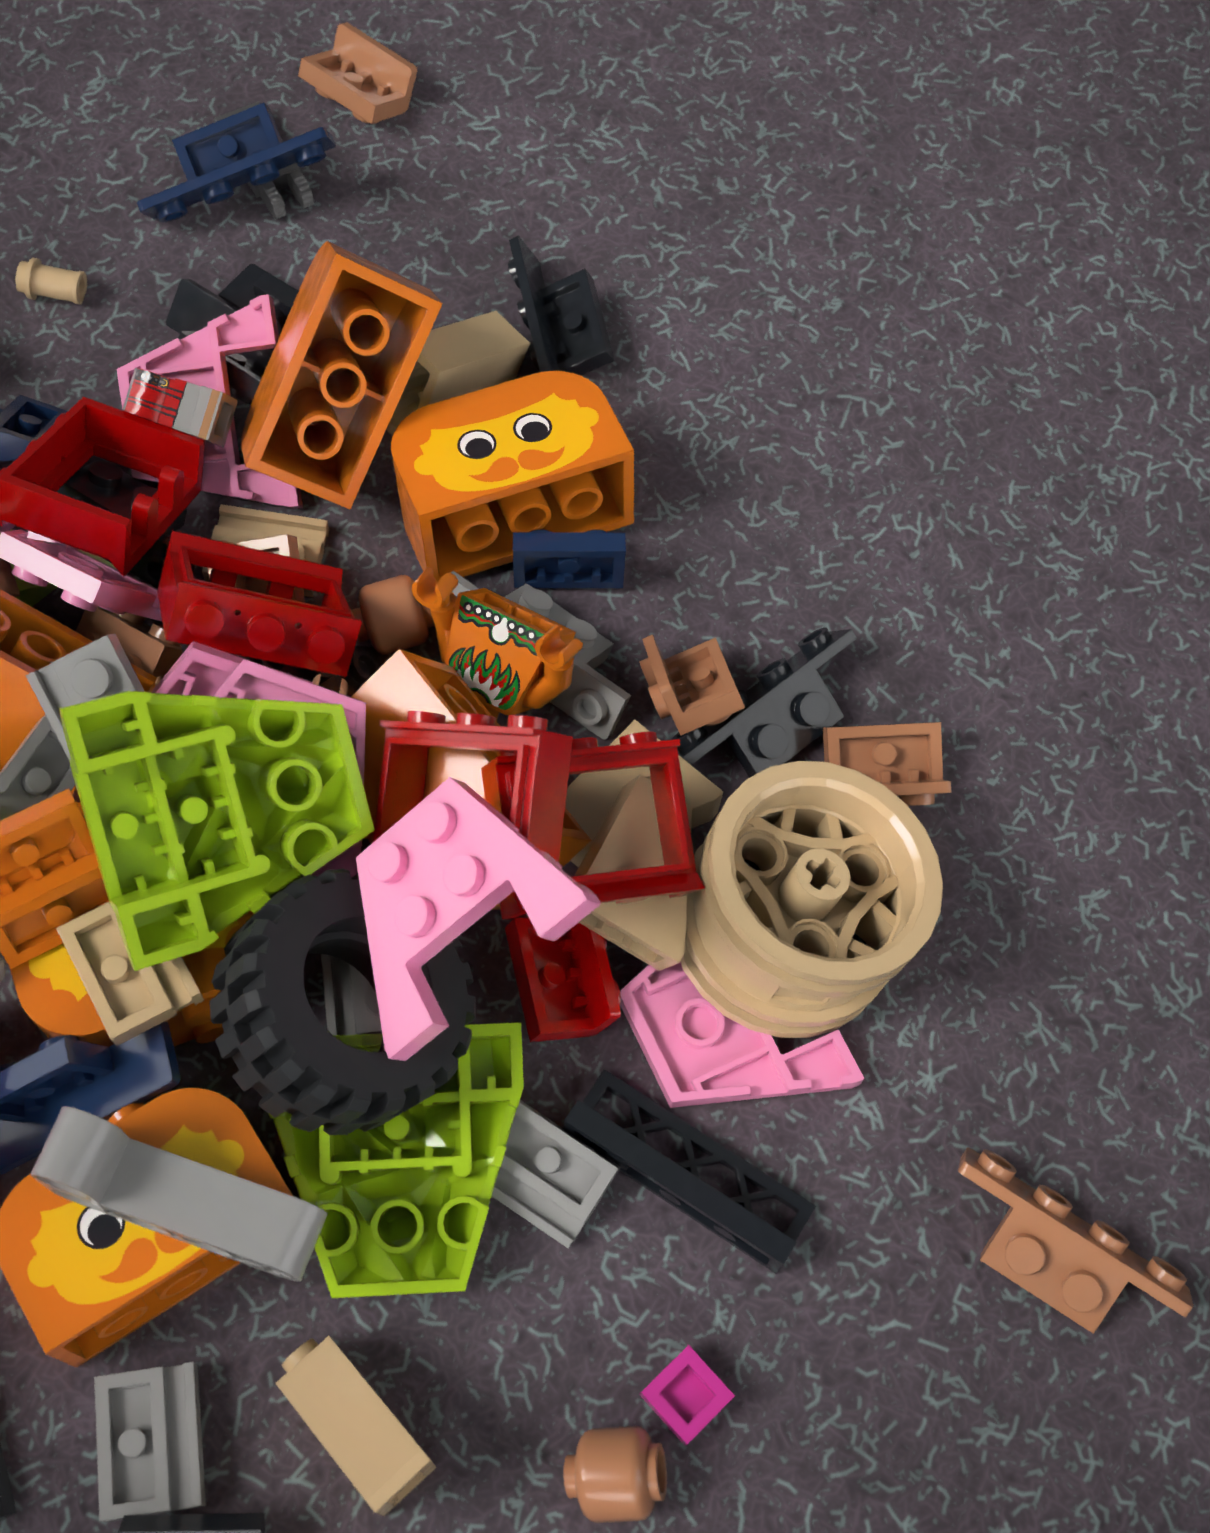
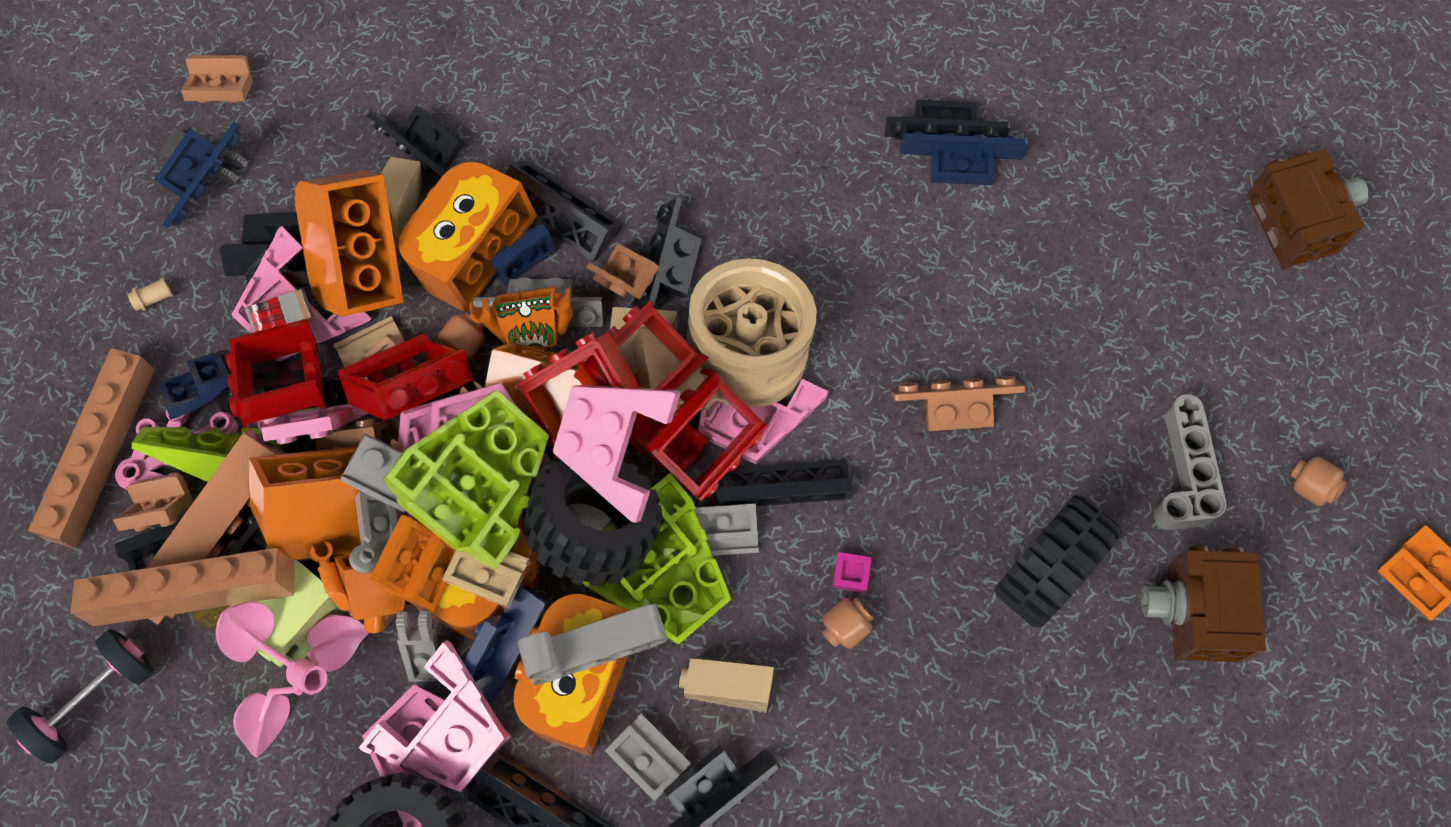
camera: 30 degrees left, 5 degrees up
(629, 1068) = (728, 459): none -> red window
(688, 533) = (569, 204): none -> black fence
(896, 755) = (737, 241): nougat bracket -> none

